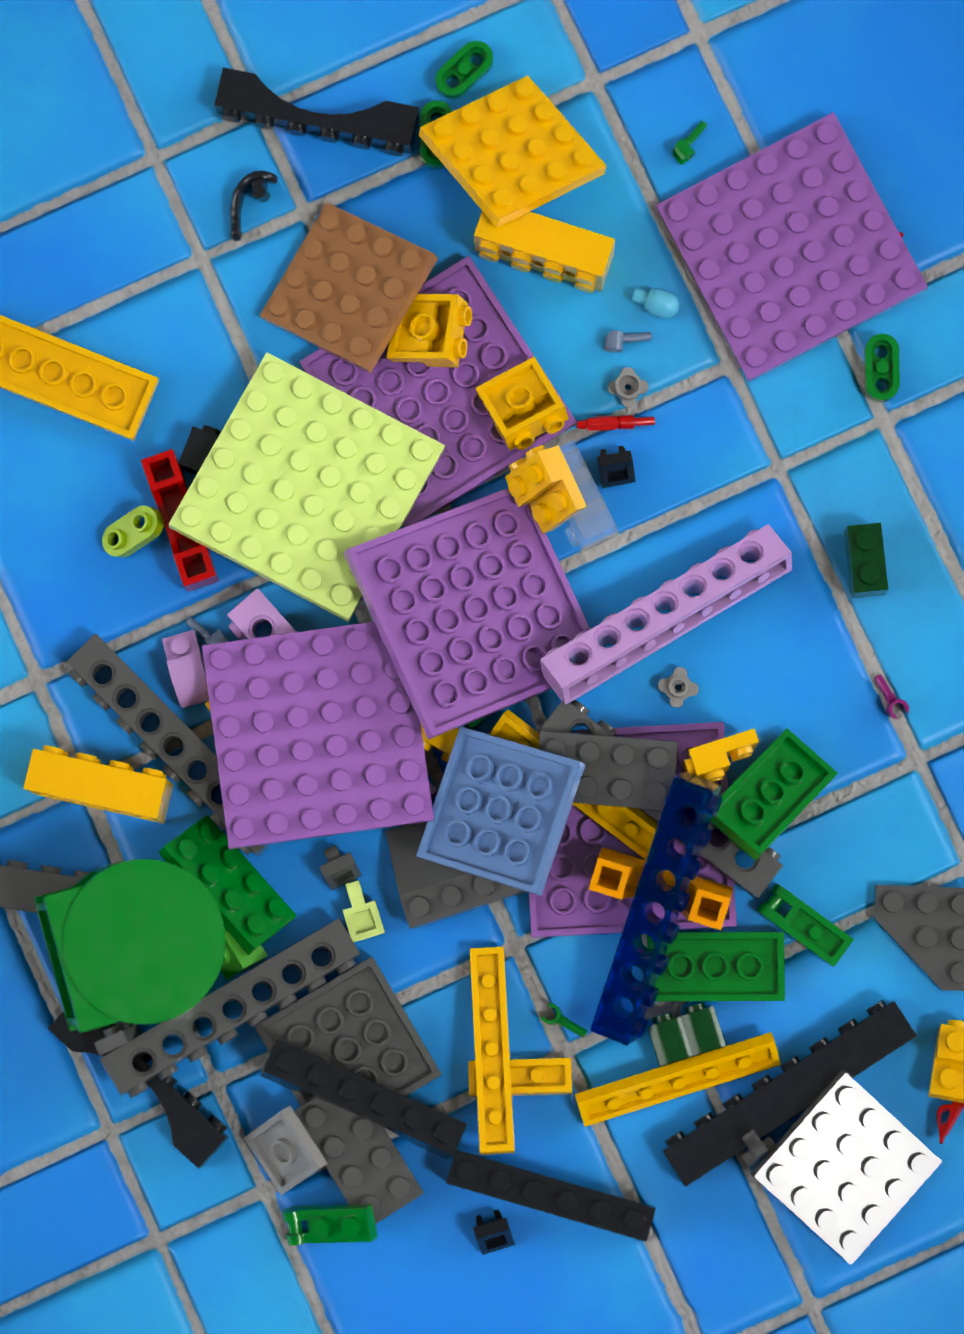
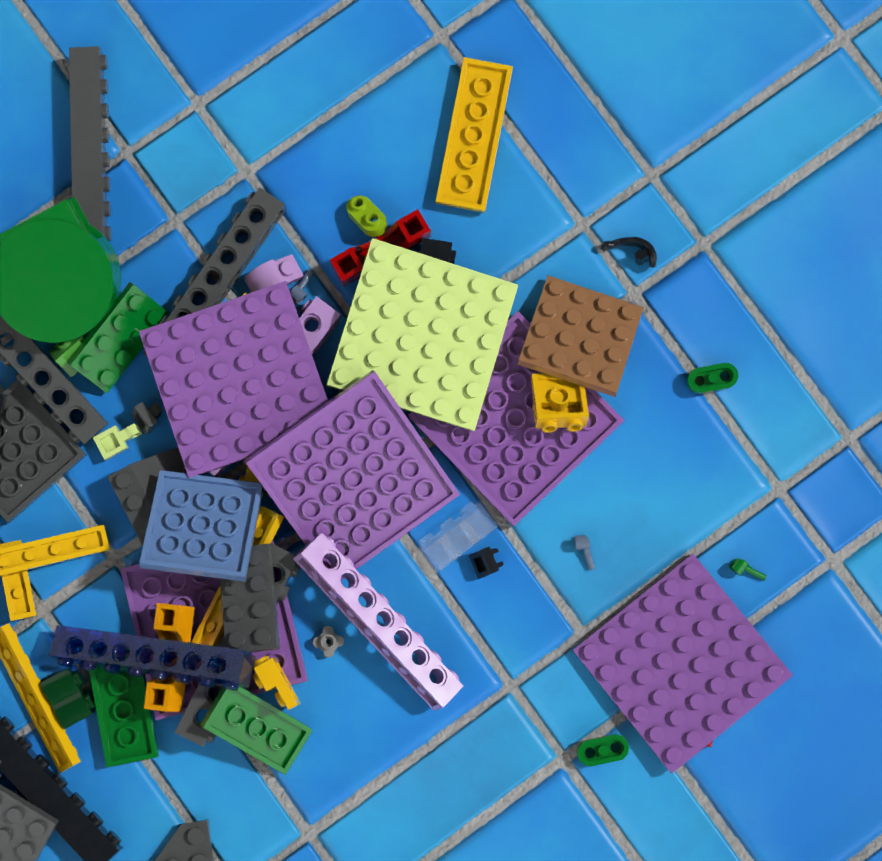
camera: 70 degrees right, 0 degrees up
(99, 786) = (172, 229): yellow brick -> none
(382, 126) = (711, 338): black arch -> none
(463, 70) = (766, 388): green plate -> none
(512, 151) = (708, 436): yellow plate -> none
(523, 404) = (516, 482): yellow plate -> none
(545, 485) = (460, 511): yellow plate -> none
(549, 248) = (642, 474): yellow brick -> none
(564, 1022) = (64, 604): green hand -> none
(606, 422) = (519, 552): red hand -> none
(628, 396) = (550, 567): light grey plate -> none
(657, 302) = (618, 569): medium azure cylinder -> none
(806, 925) = (166, 772): green plate -> none
(866, 560) = (451, 766): dark green brick -> none
(890, 697) = (351, 804): magenta hand -> none

